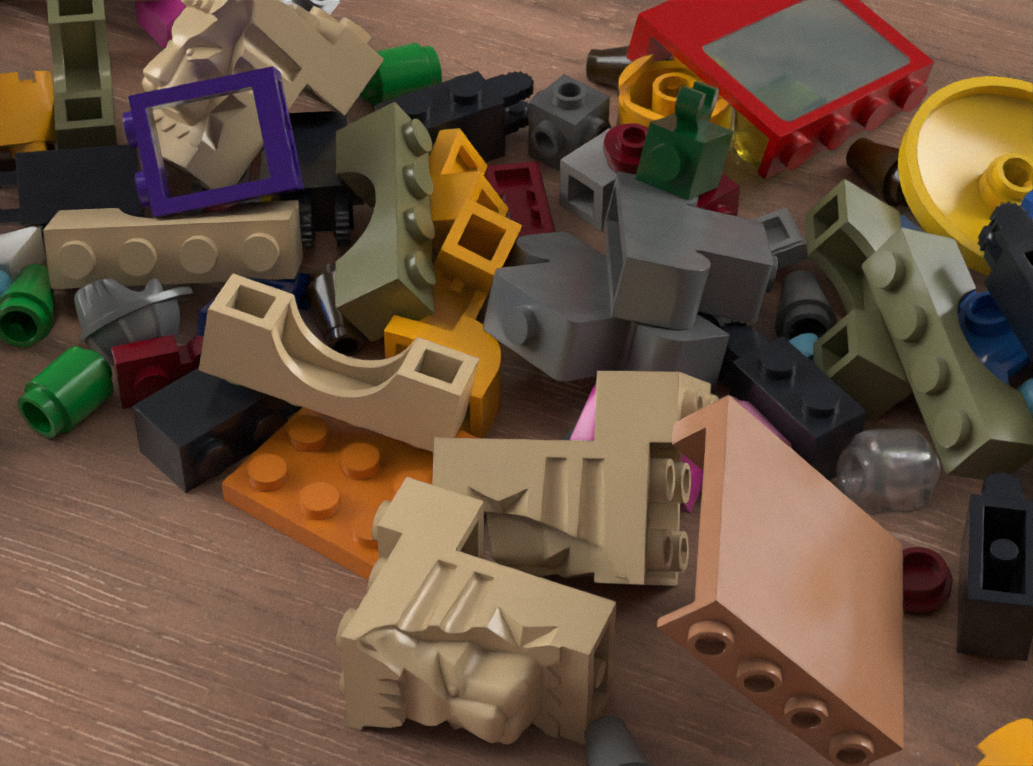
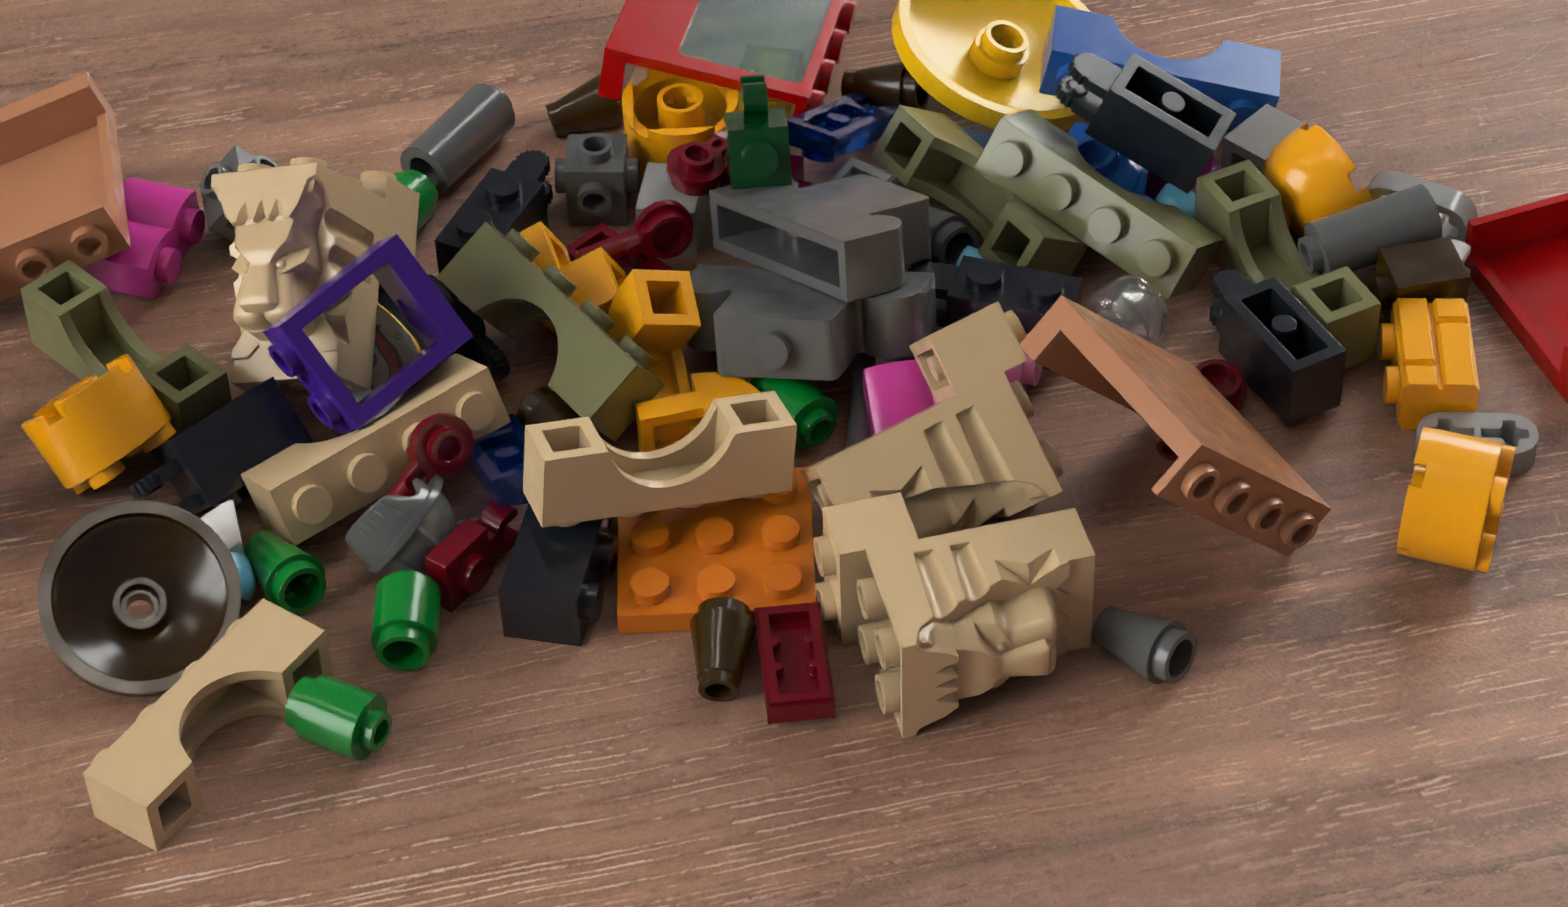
camera: 35 degrees left, 0 degrees up
(200, 263) = (437, 446): none -> dark red plate
(273, 554) = (721, 646): none -> dark brown cone
(311, 605) = (794, 663): none -> dark red plate
(502, 41) = (460, 136): none -> dark grey brick
(531, 398) = (807, 405): none -> green brick
(561, 188) = (659, 232): none -> dark red plate
(793, 176) = (839, 127): none -> clear blue plate

